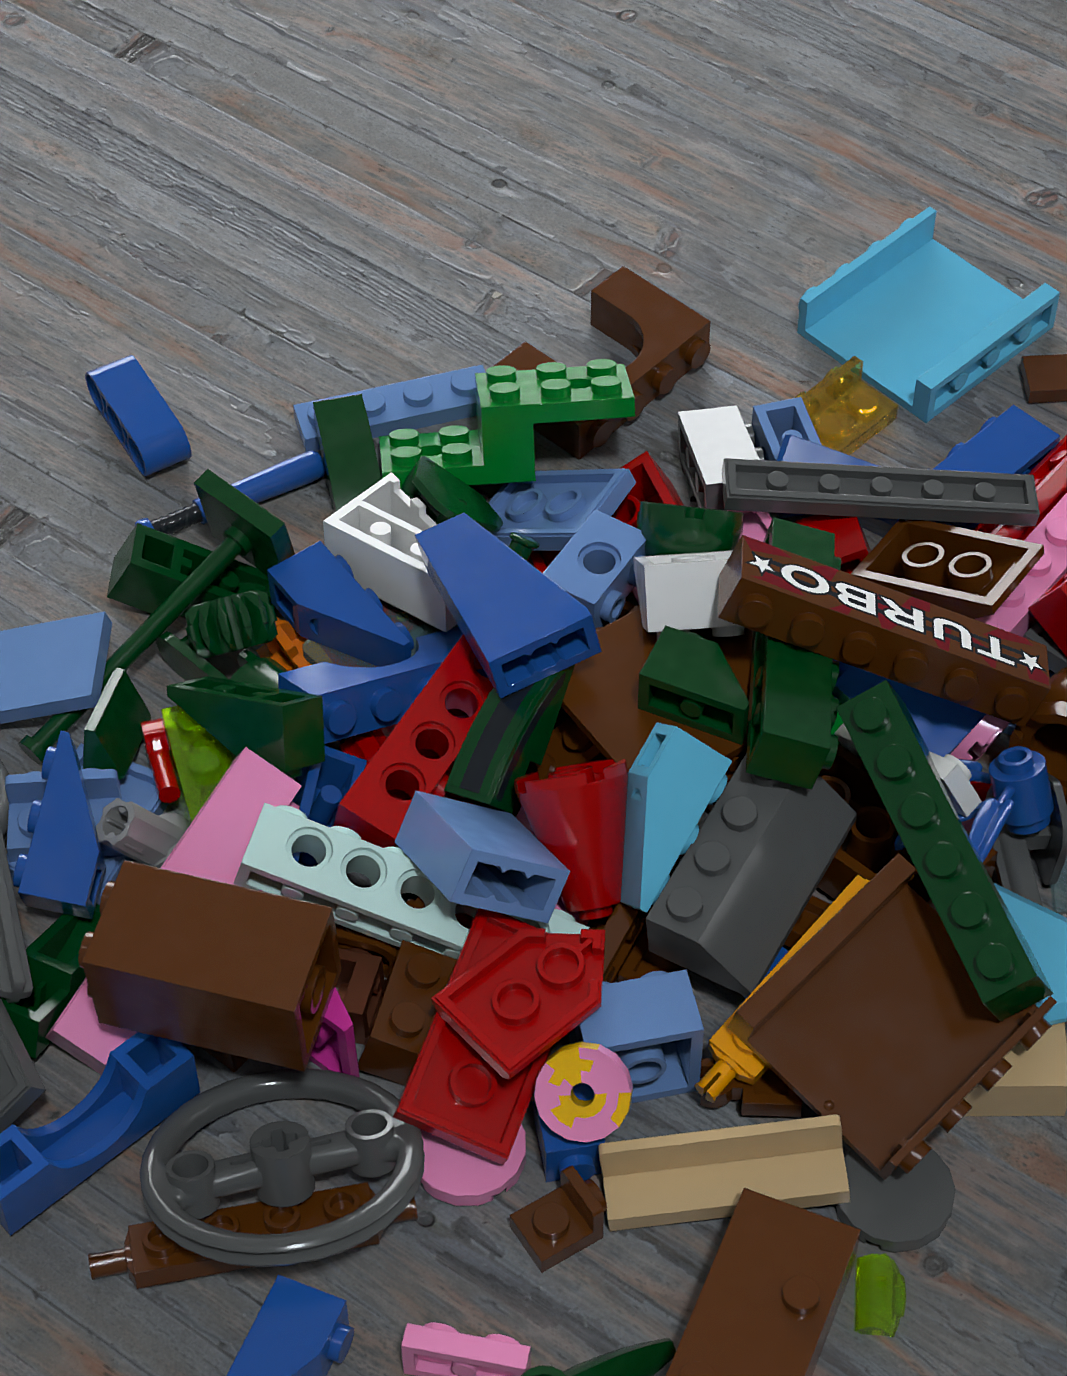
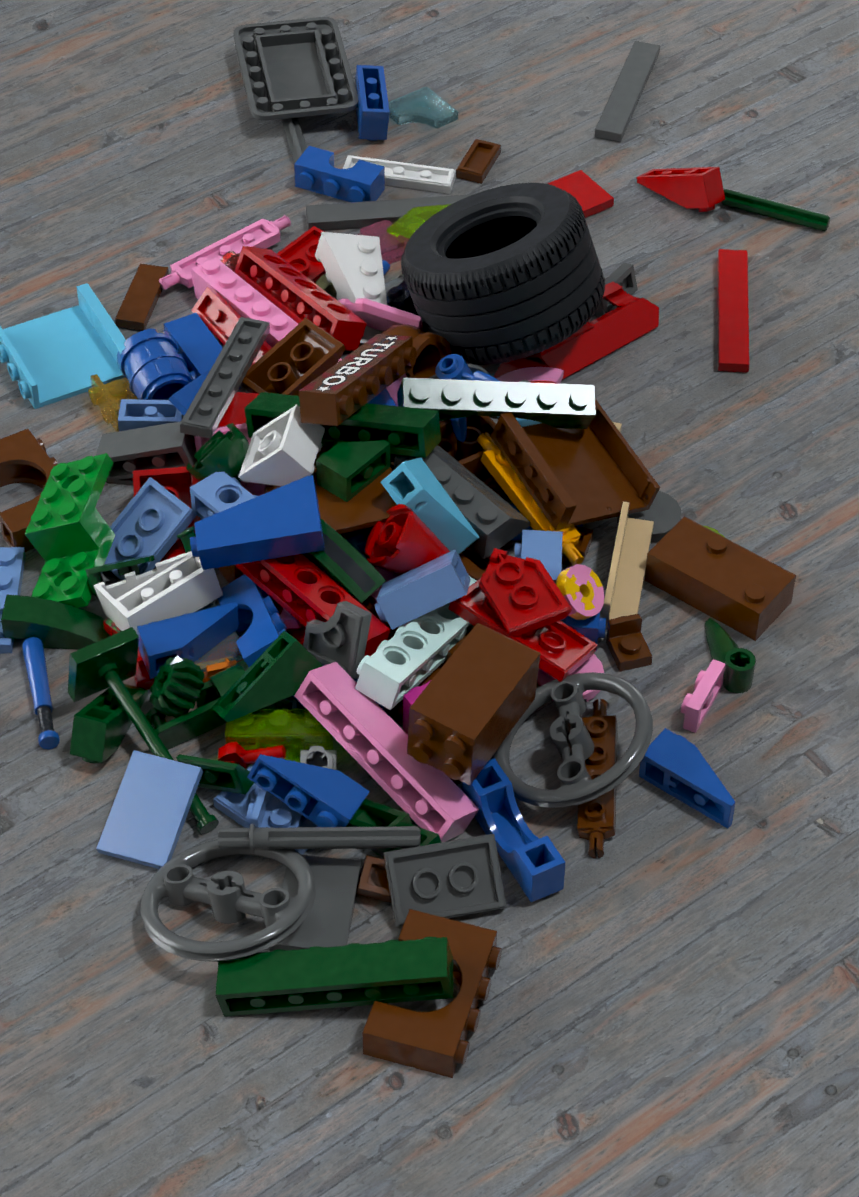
camera: 75 degrees left, 5 degrees down
(344, 776) = (340, 638): none -> dark grey tile
(906, 420) = (153, 365): none -> blue piece

